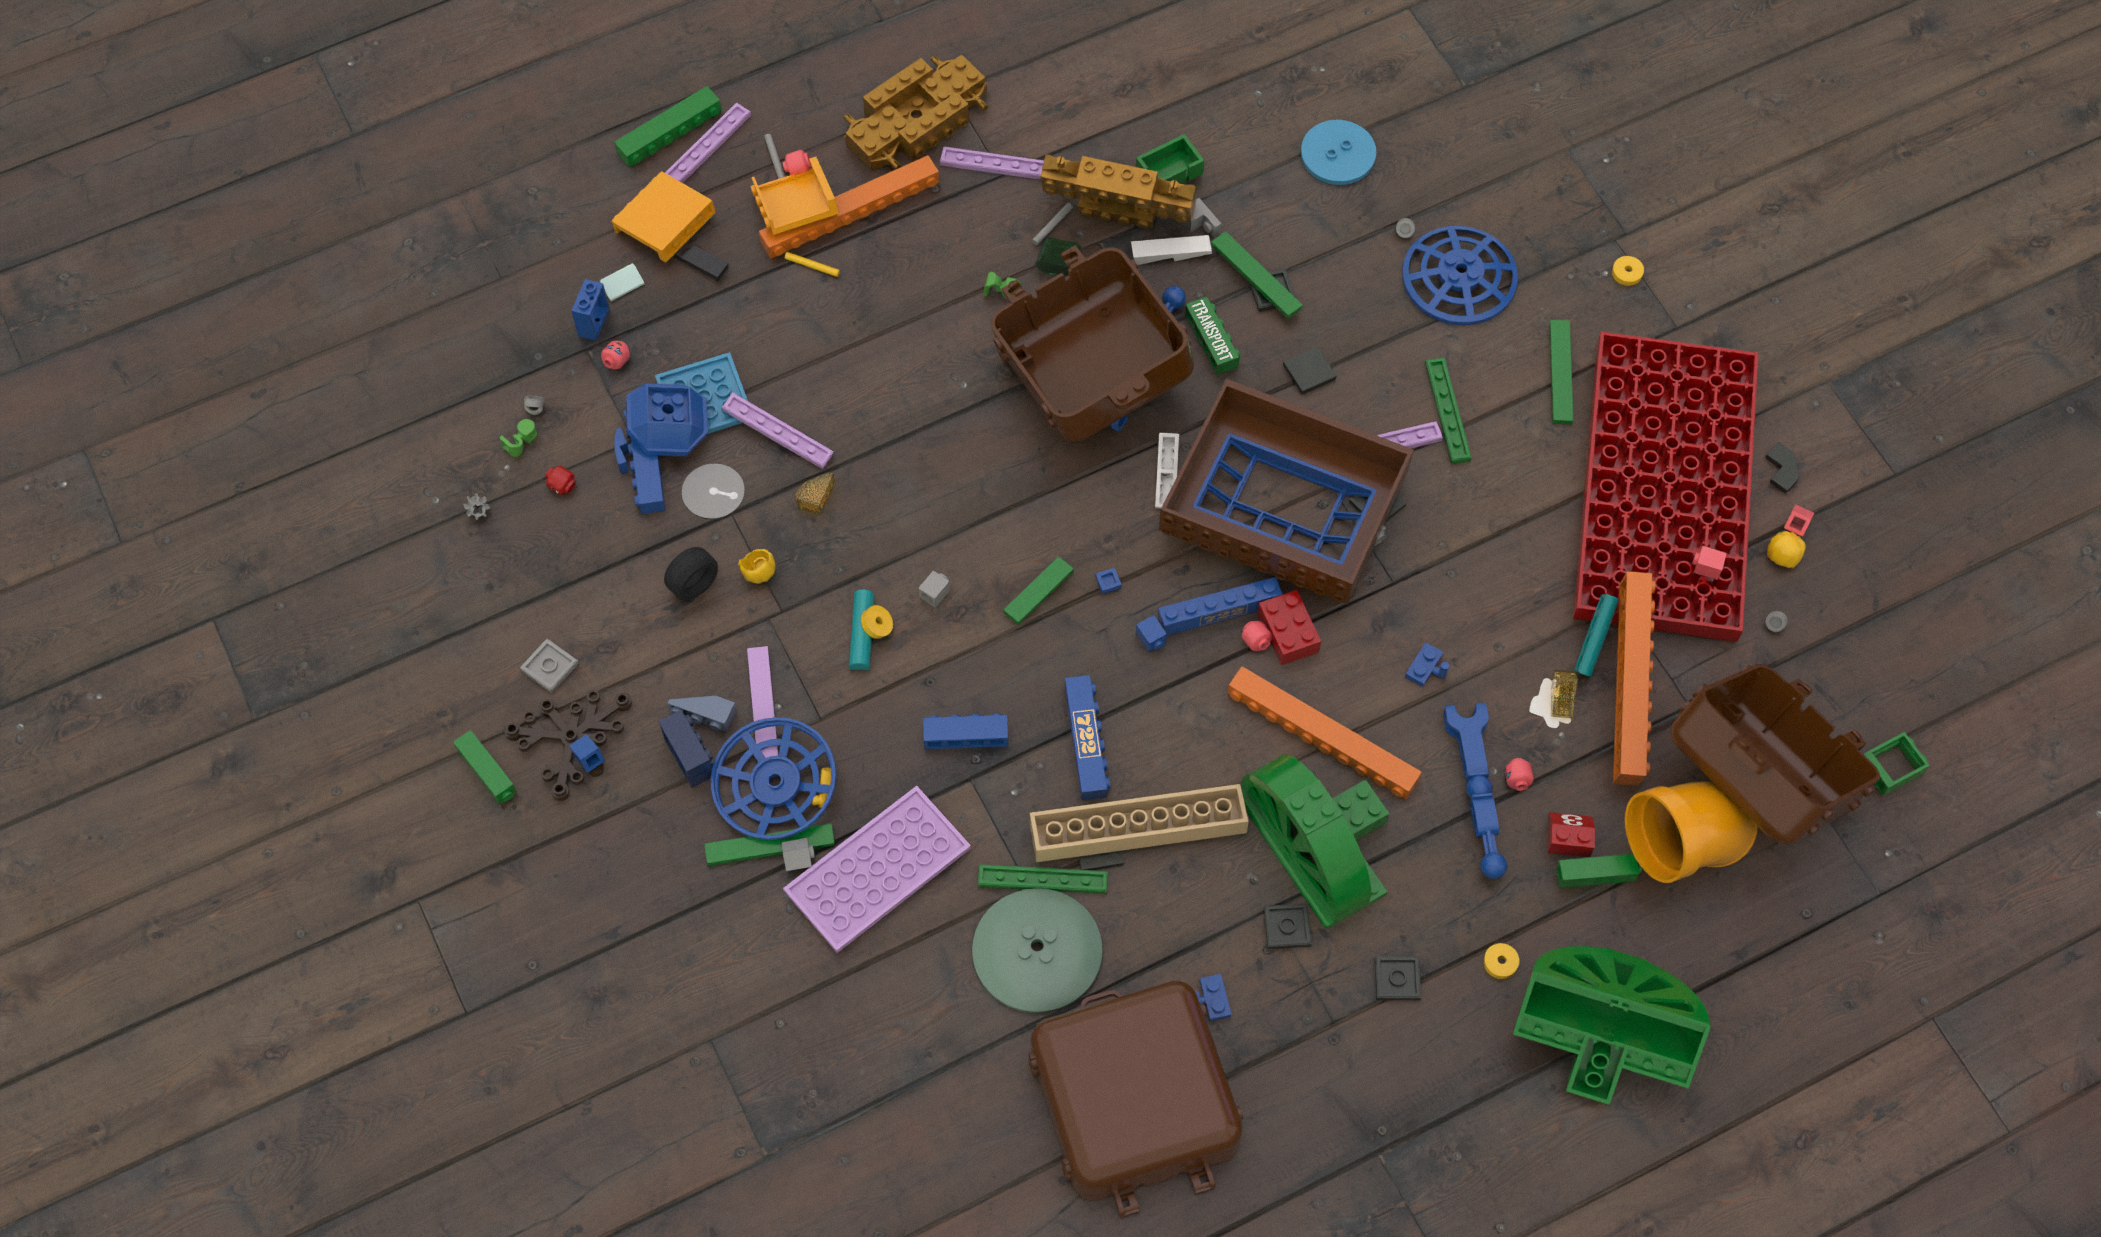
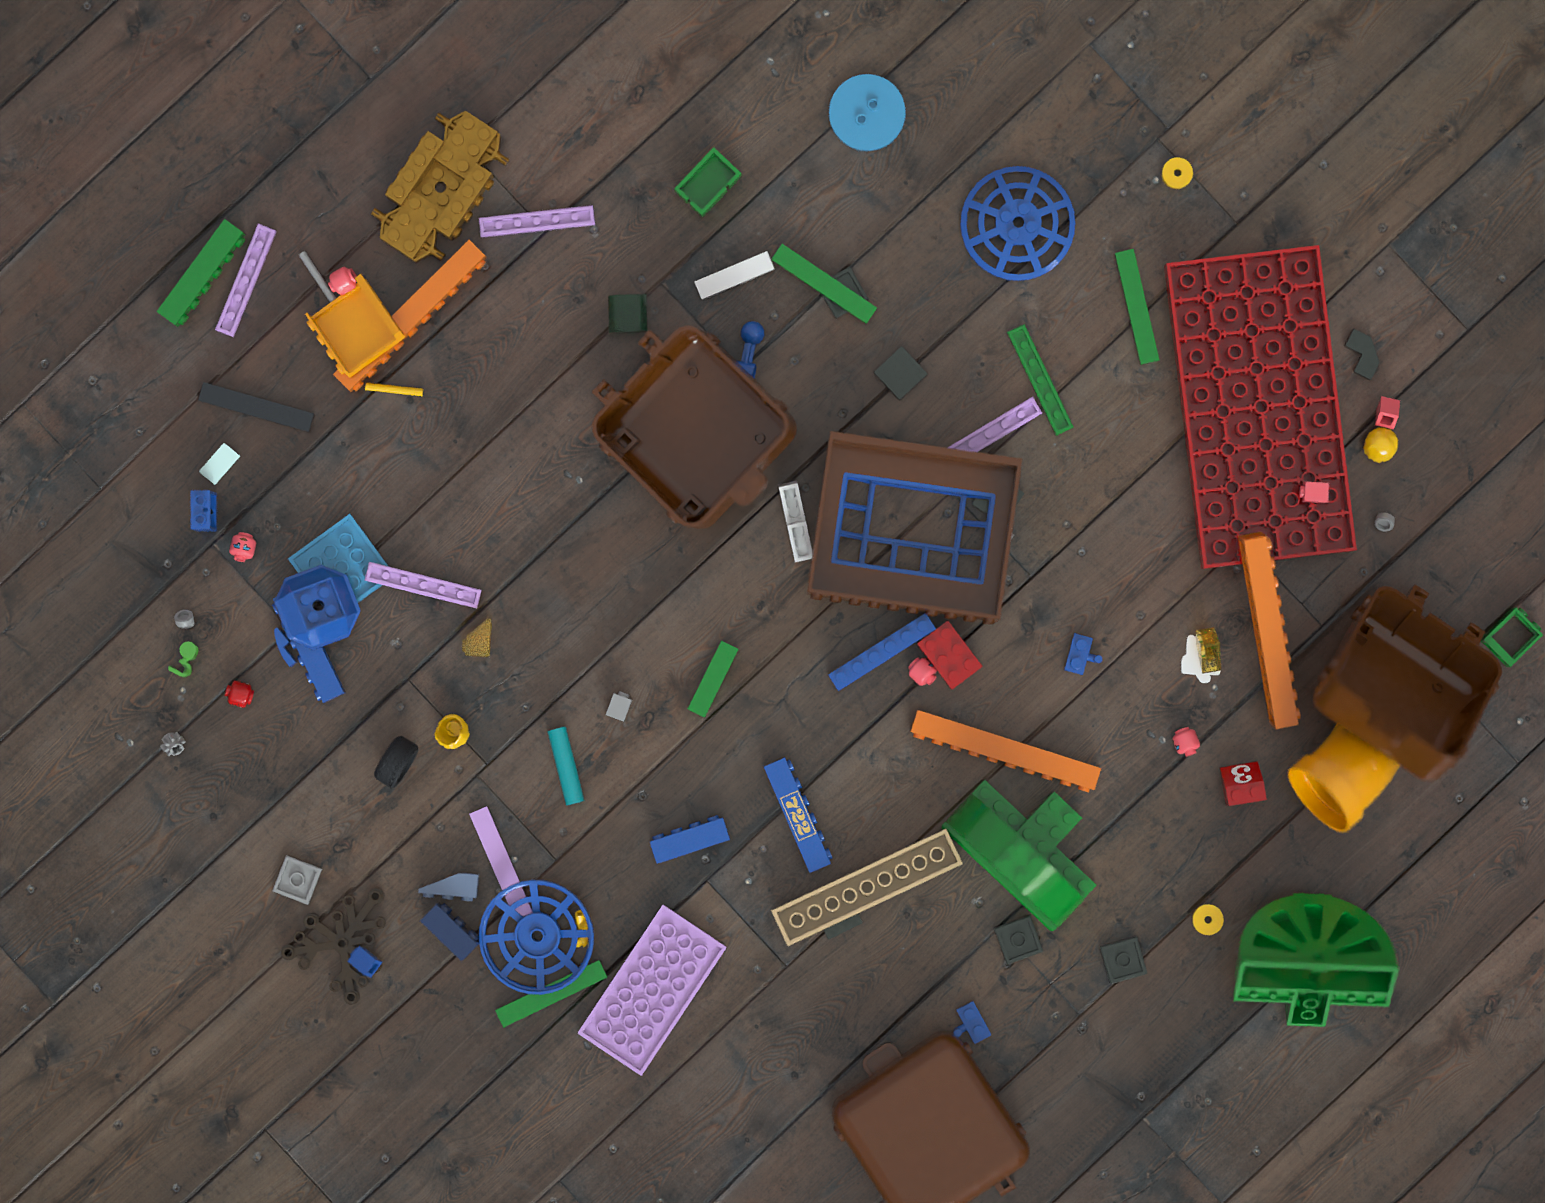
camera: 20 degrees left, 25 degrees up
(485, 767) = (278, 996): green brick -> none
(664, 215) = (233, 381): light orange panel -> none
(713, 490) = (382, 660): light grey piece -> none
(797, 854) = (579, 999): light grey brick -> none
(875, 629) = (570, 756): yellow piece -> none
(994, 280) = (592, 365): bright green leg -> none
(1031, 978) = (807, 994): sand green dish -> none
(1044, 878) = (797, 956): green tile -> none
(1052, 224) = (611, 277): light grey bar -> none
(1108, 580) = (773, 652): blue plate -> none
(1118, 191) = (669, 242): pearl gold piece -> none
(1151, 634) = (828, 697): blue brick -> none
(1204, 217) = (752, 229): light grey slope -> none
(1212, 336) = (799, 363): green brick -> none
(1405, 227) = (953, 186): light grey tile -> none
(1478, 786) = (1153, 765): blue piece -> none
(1596, 635) = (1226, 590): teal brick -> none
(1598, 870) = (1271, 815): green brick -> none

